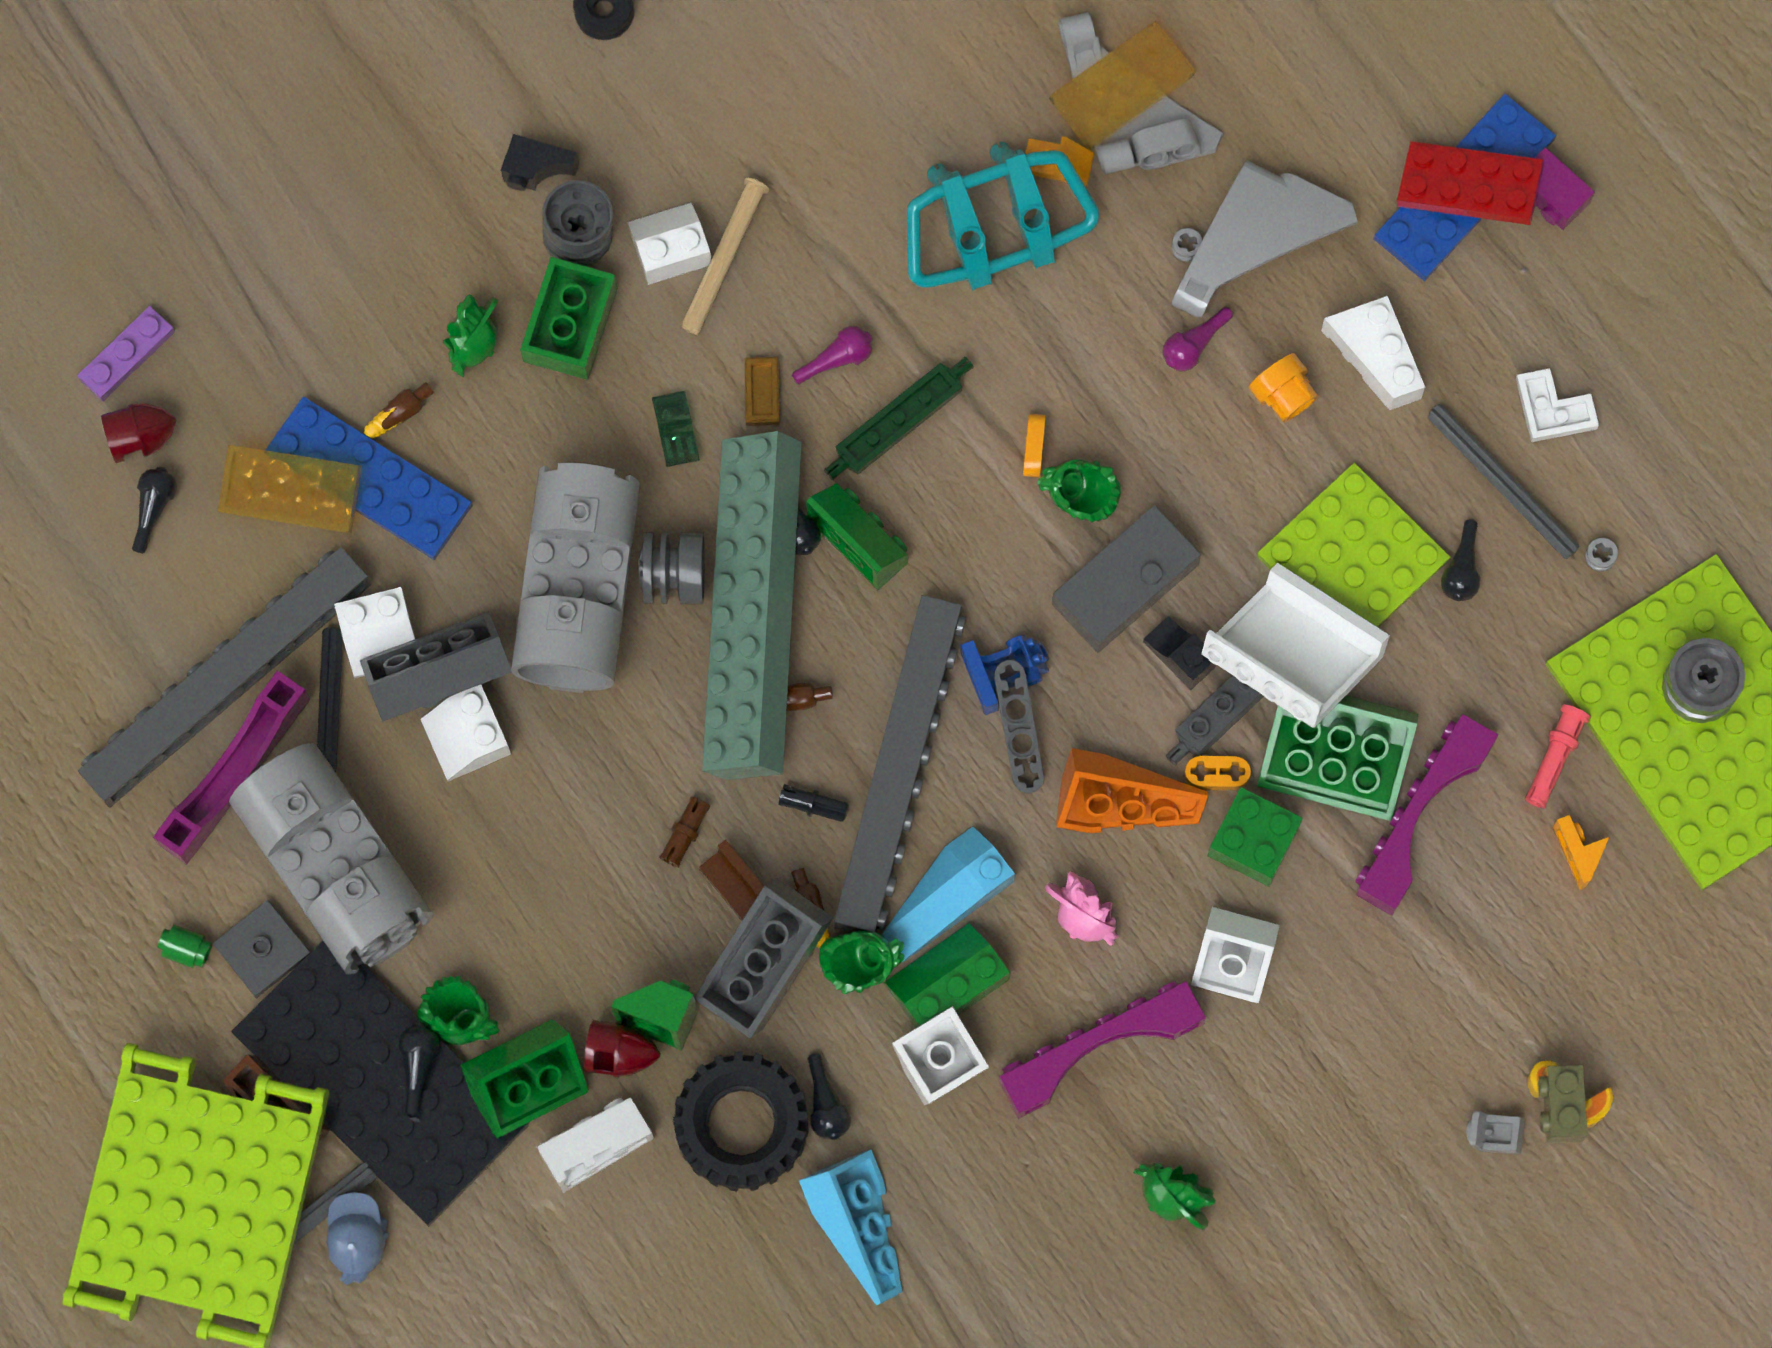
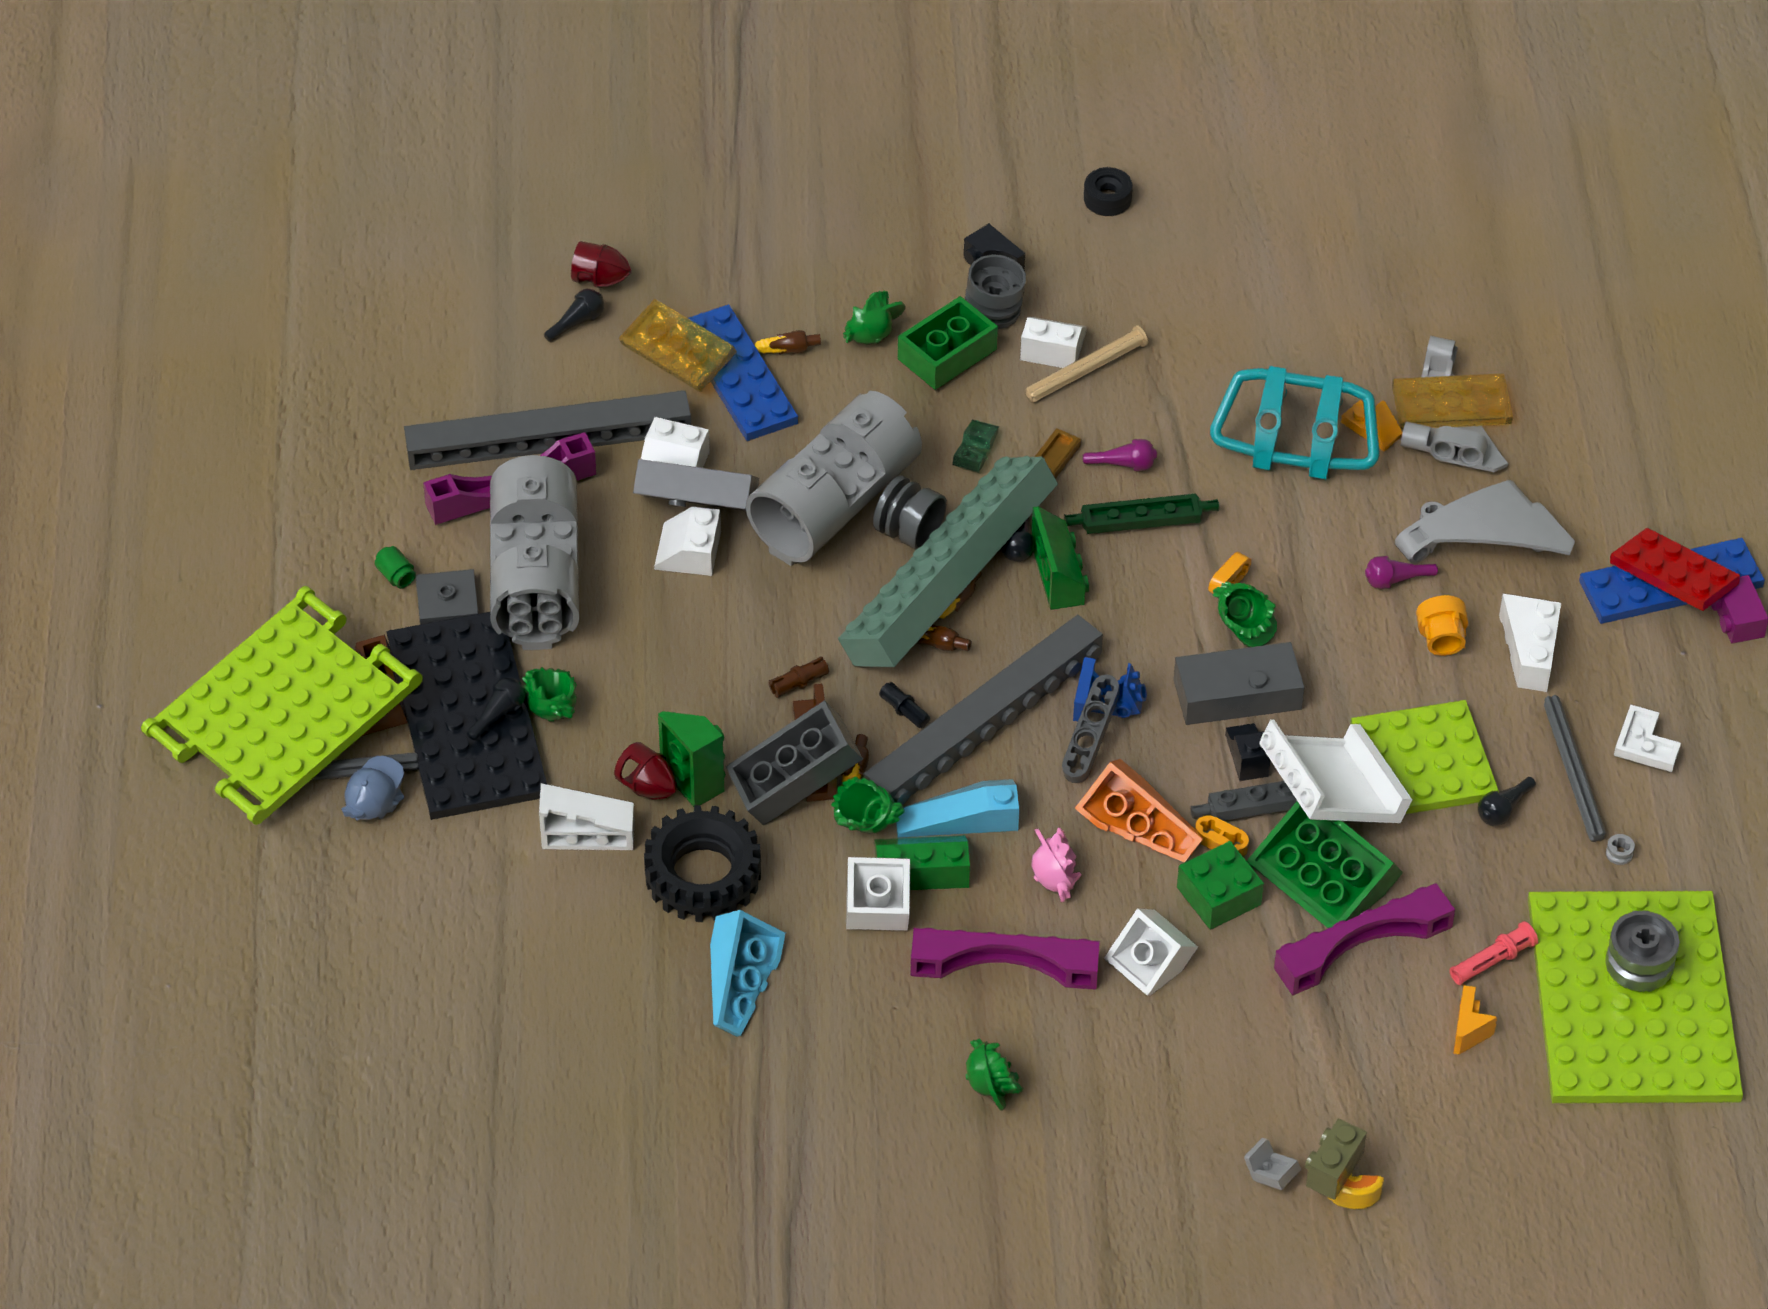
camera: 30 degrees right, 25 degrees down
(126, 353) = (629, 227): medium lavender plate -> none
(329, 694) = (609, 479): black axle -> none
(525, 1077) = (568, 756): green slope -> none
(829, 1116) = (770, 894): black piece -> none

